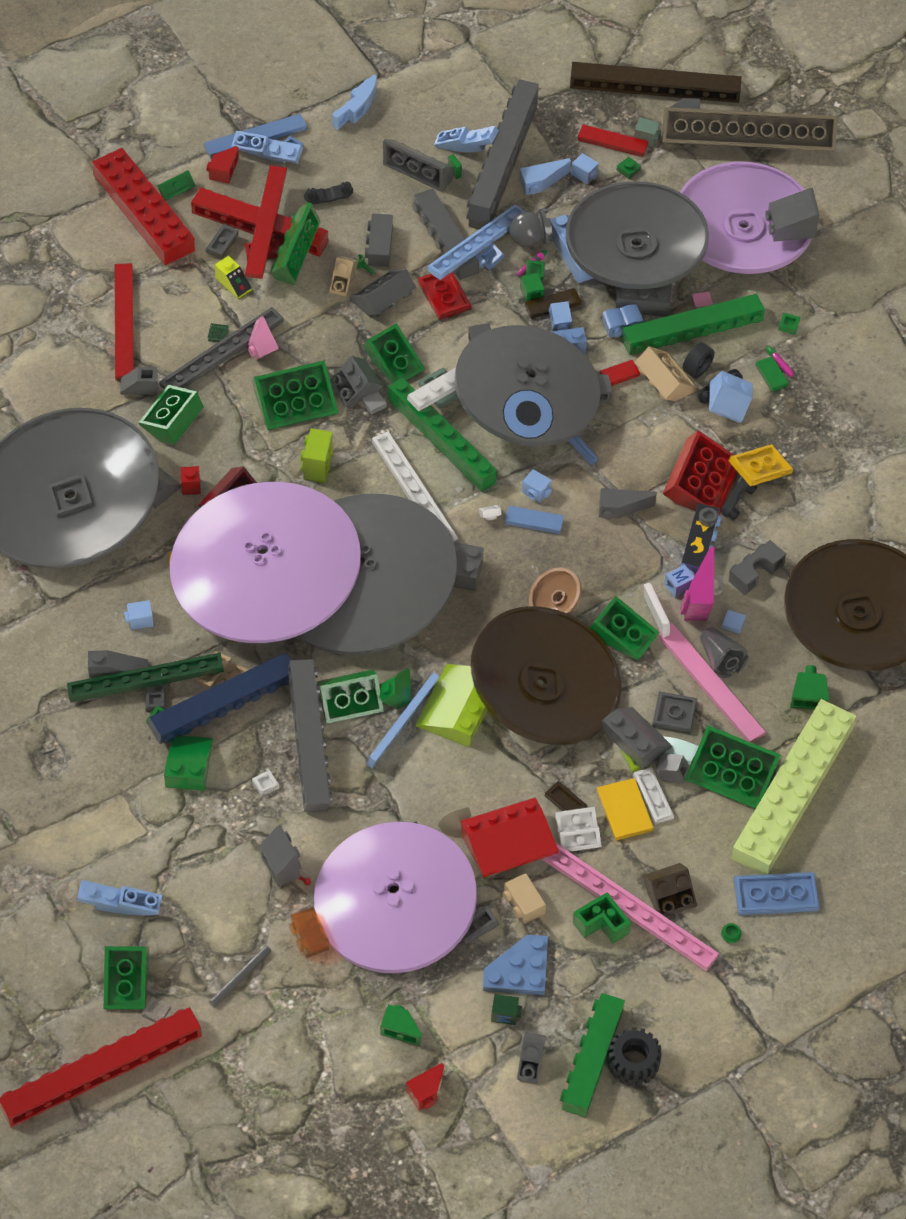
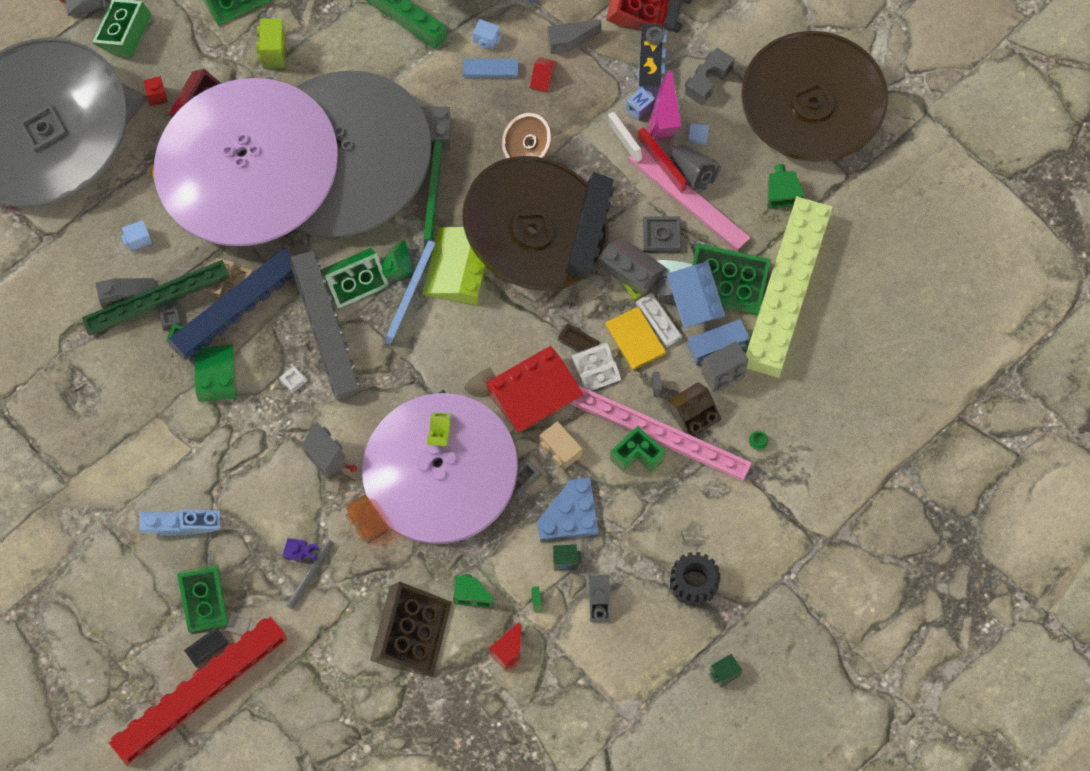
camera: 10 degrees left, 10 degrees up
(118, 1025) = (206, 646): none -> black tile
(232, 949) = (297, 549): none -> dark purple plate
(330, 1050) = (411, 630): none -> dark brown slope
(402, 854) = (439, 429): none -> lime slope
(407, 477) = (362, 49): white plate -> none
(448, 627) = (433, 192): none -> green tile
(466, 1040) = (536, 599): none -> green tile
(490, 512) = (447, 69): white plate -> none
(585, 535) = (542, 74): none -> red slope
(593, 1054) = (656, 584): green brick -> none
(600, 688) = (589, 226): none -> black brick
(624, 629) = (596, 156): green slope -> none
(636, 857) = (656, 384): none -> dark grey tile
(646, 1154) = (725, 670): none -> dark green brick
(690, 638) = (662, 159): none -> red tile
(695, 775) = (695, 295): none -> medium blue slope
(709, 828) = (716, 339): none -> medium blue brick
(710, 852) = (725, 366): none -> dark grey brick
(776, 893) = (792, 393): medium blue tile -> none

